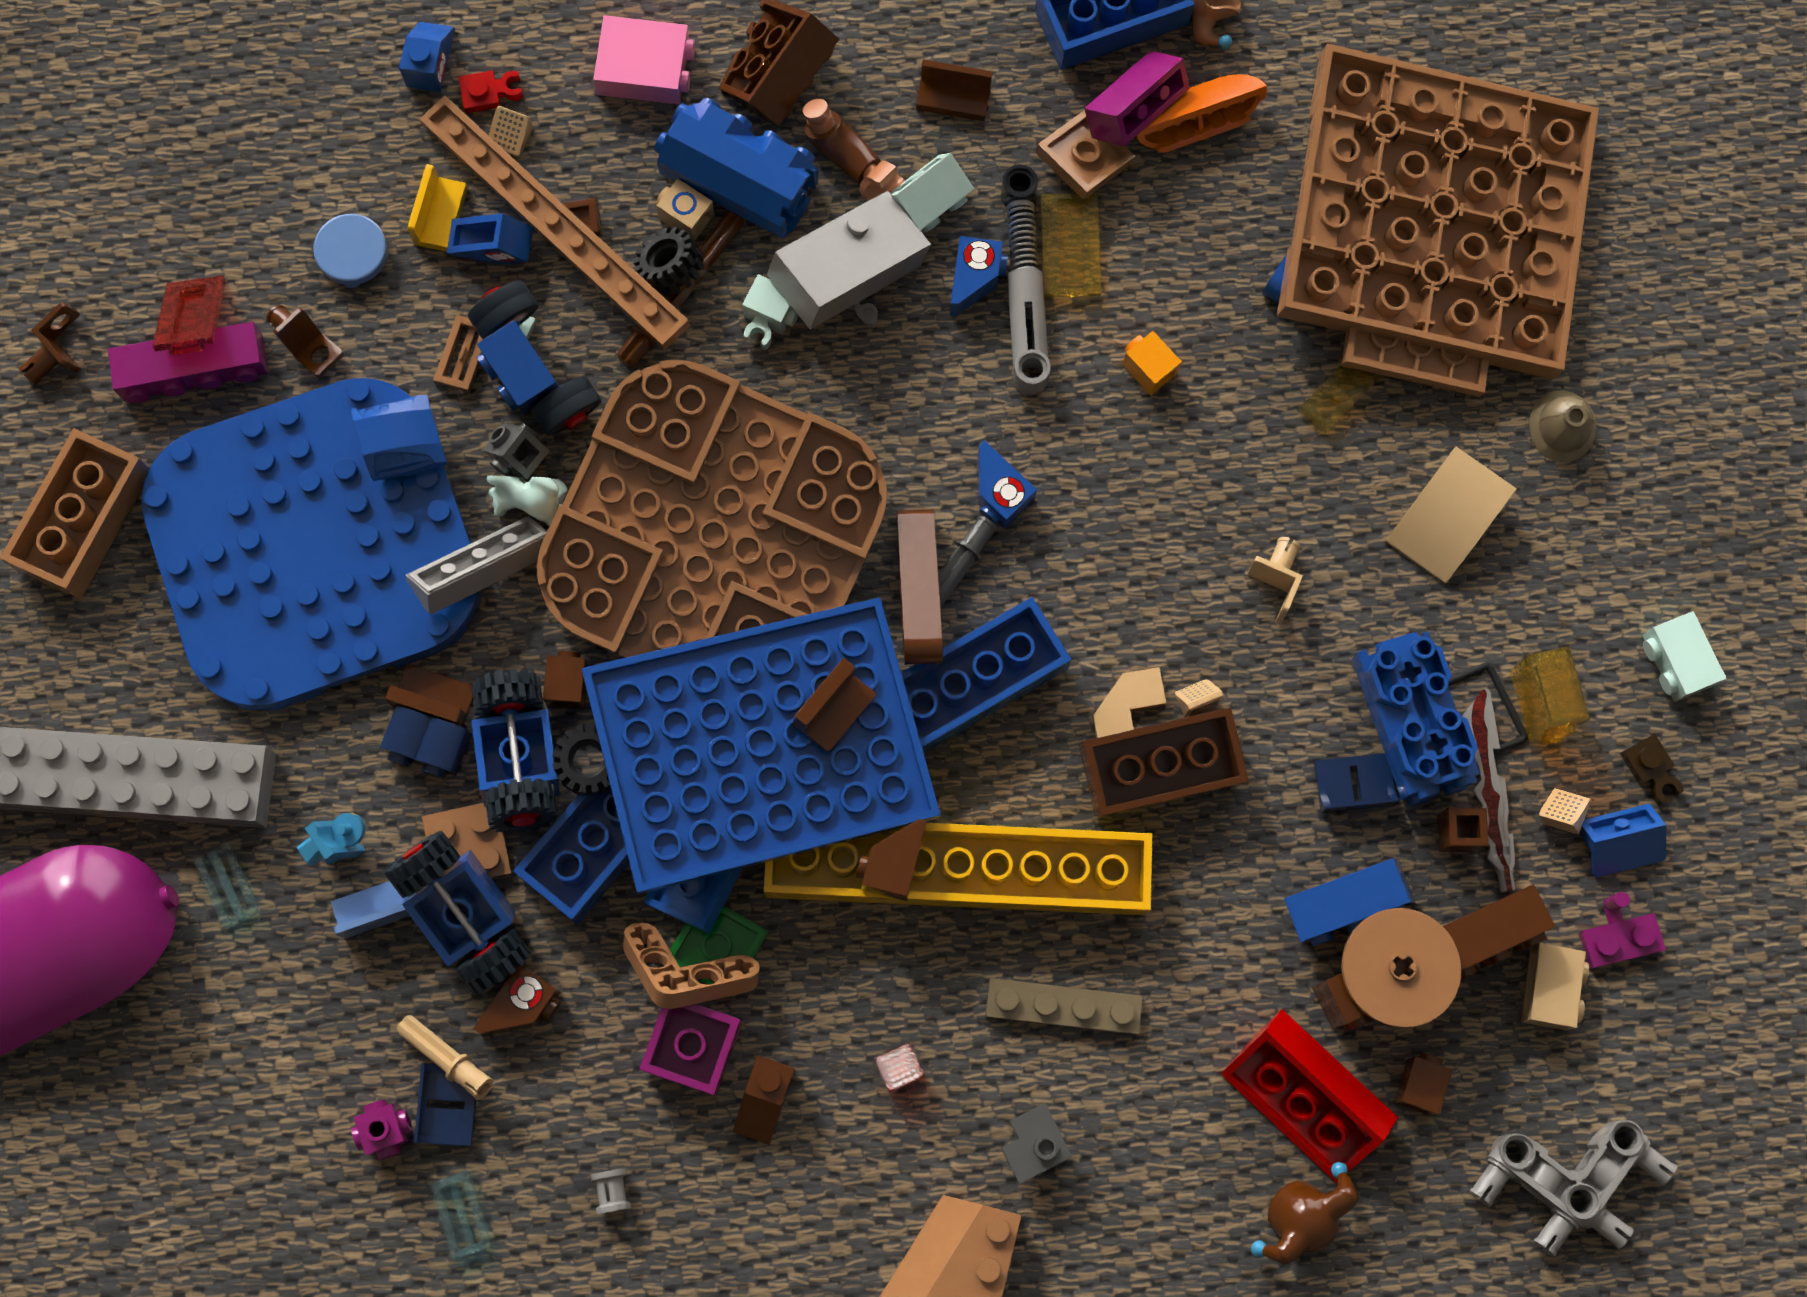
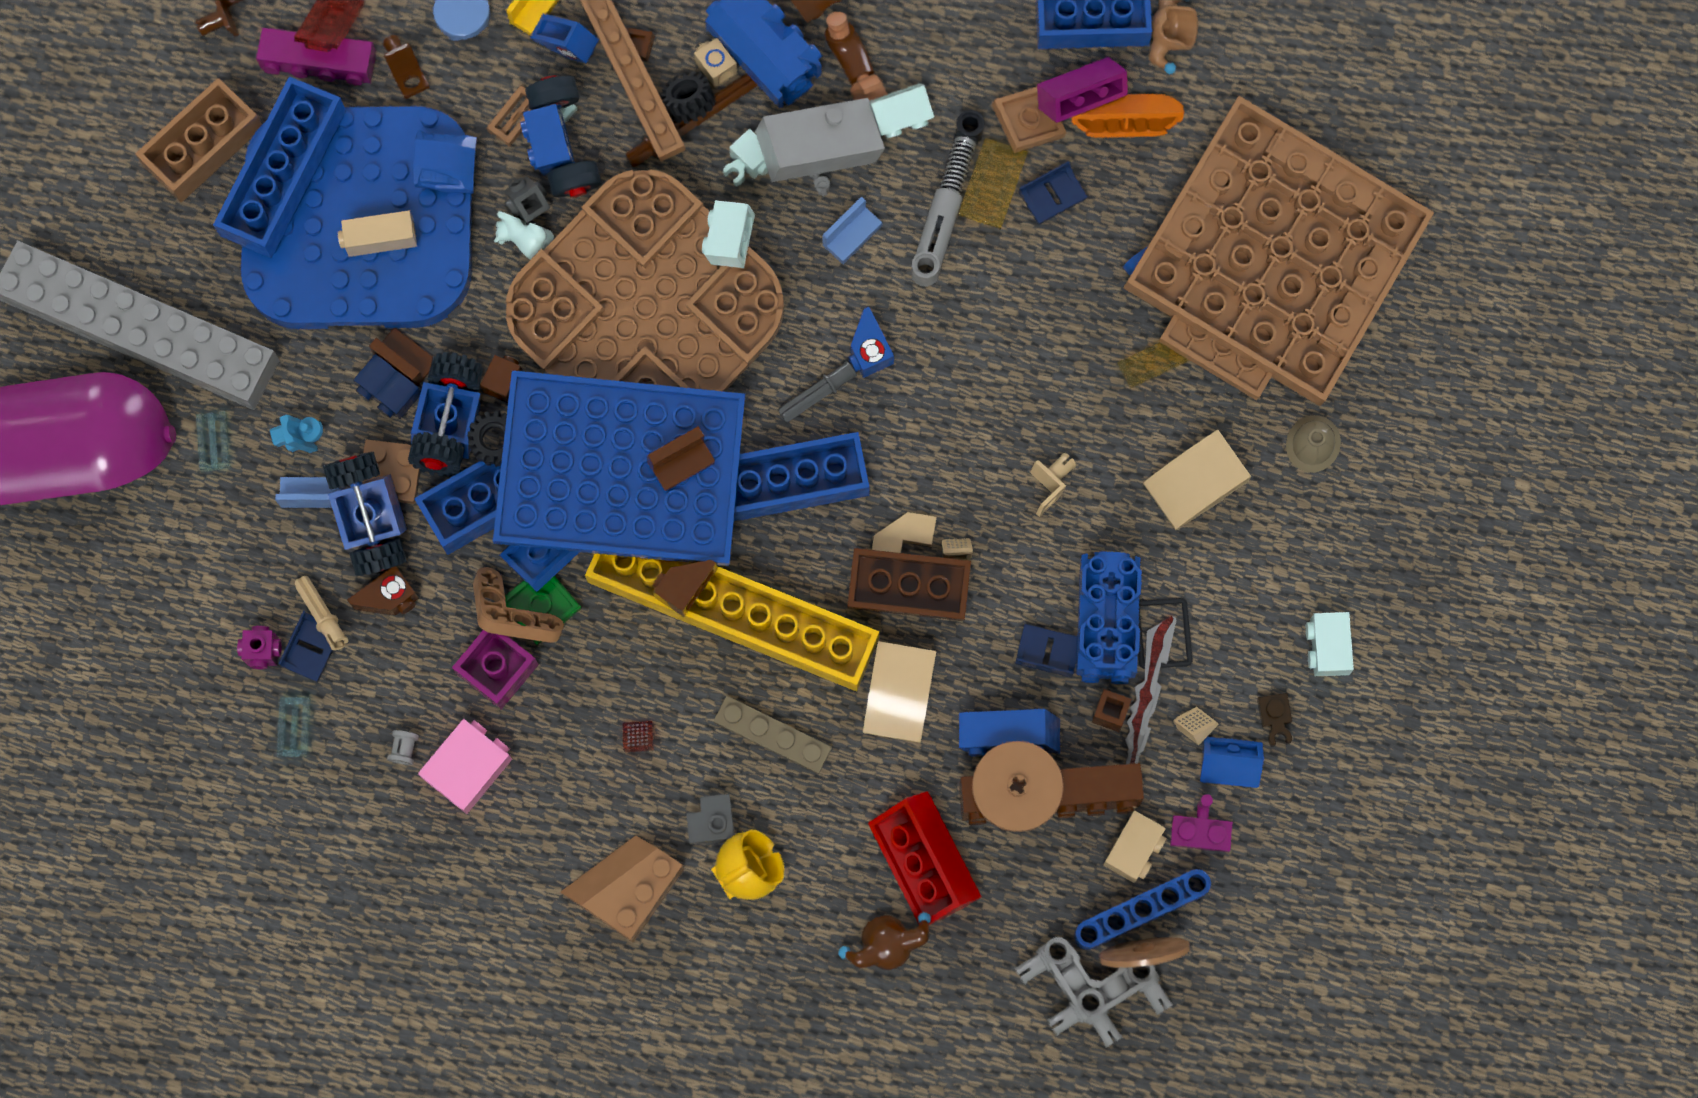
camera: 25 degrees right, 0 degrees up
(192, 513) = (280, 167): none -> blue brick
(346, 554) = (377, 233): none -> tan brick
(477, 565) = (467, 273): light grey slope -> none
(699, 1184) = (466, 765): none -> bright pink brick
(763, 1099) = (533, 722): reddish brown slope -> none
(787, 408) = (728, 234): none -> light aqua brick
(919, 587) = (779, 397): beam -> none
(925, 358) = (851, 231): none -> medium blue panel
(954, 90) = (949, 38): reddish brown panel -> none
(976, 271) = (912, 180): blue slope -> none
(1103, 1186) = (748, 866): none -> yellow piece
(1151, 362) = (1017, 291): light orange brick -> none
(1154, 219) = (1064, 186): none -> dark blue piece
(1199, 898) = (899, 692): none -> tan slope
(1423, 1084) = (1010, 881): reddish brown brick -> none
(1549, 695) = (1214, 635): clear yellow piece -> none
(1610, 1055) = (1152, 899): none -> blue beam
(1626, 1116) = (1144, 952): none -> medium nougat piece

